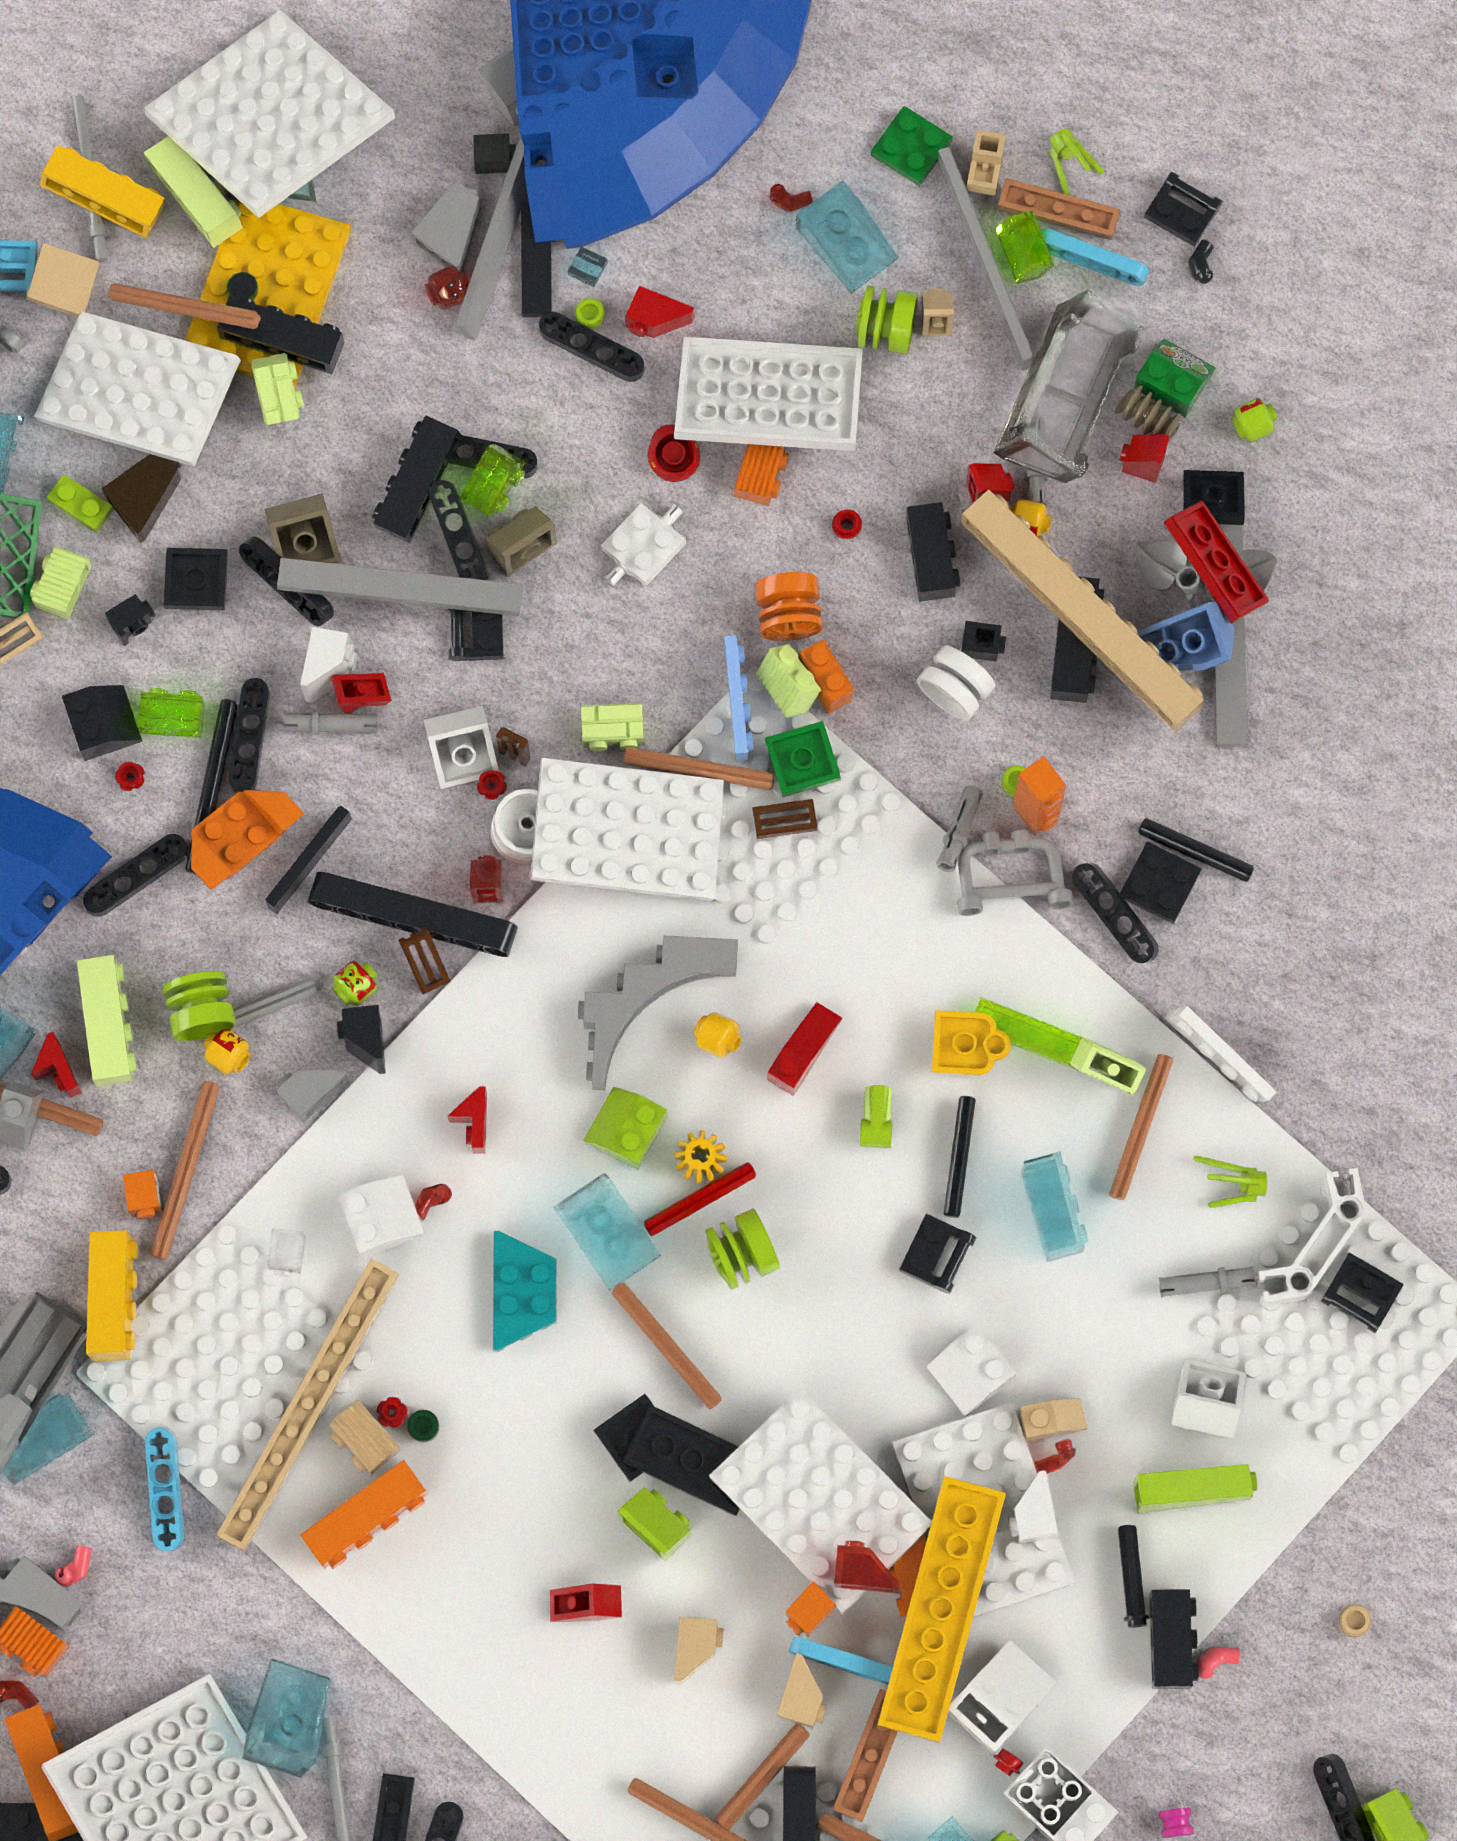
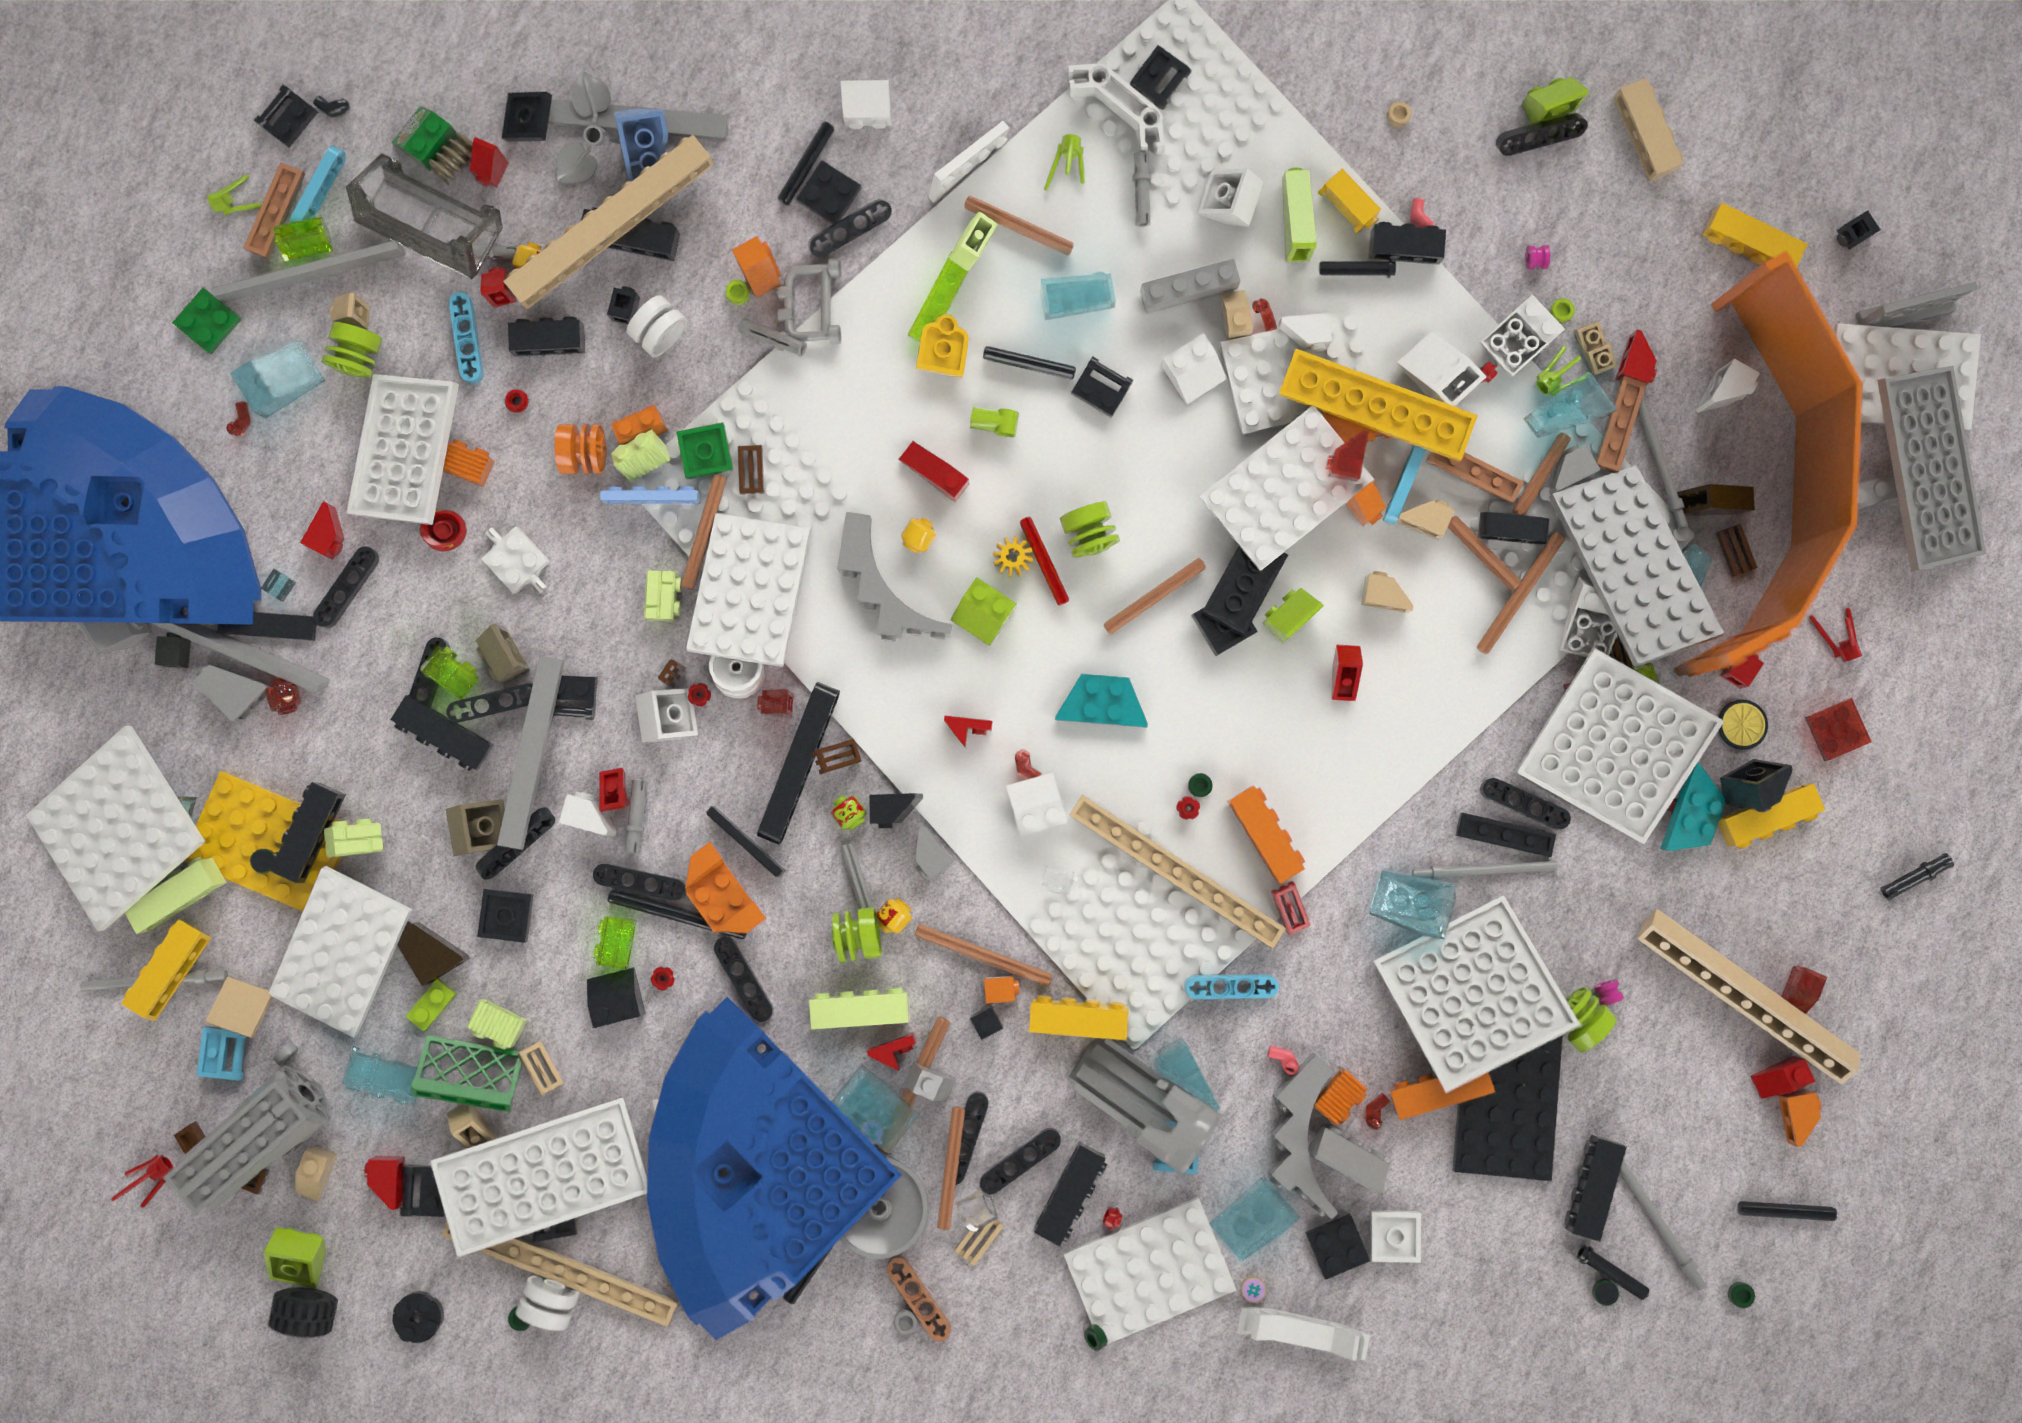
camera: 85 degrees left, 10 degrees up
(99, 1180) = (986, 1022): none -> black brick
(130, 618) = (532, 969): black brick -> none
(184, 306) = (274, 908): nougat axle -> none
(292, 1545) = (1283, 891): none -> tile
(364, 1438) = (1207, 830): tan brick -> none
(590, 313) = (318, 586): lime tile -> none
(607, 1231) = (1063, 633): clear light blue slope -> none
(923, 459) = (463, 338): none -> medium azure beam
(986, 162) = (228, 262): tan brick -> none
(1081, 1353) = (1190, 286): none -> light grey brick
(1216, 561) = (581, 113): red tile -> none
(1220, 1559) = (1351, 201): none -> yellow brick
(1254, 420) = (466, 79): lime head -> none
(1278, 917) = (866, 103): none -> white slope

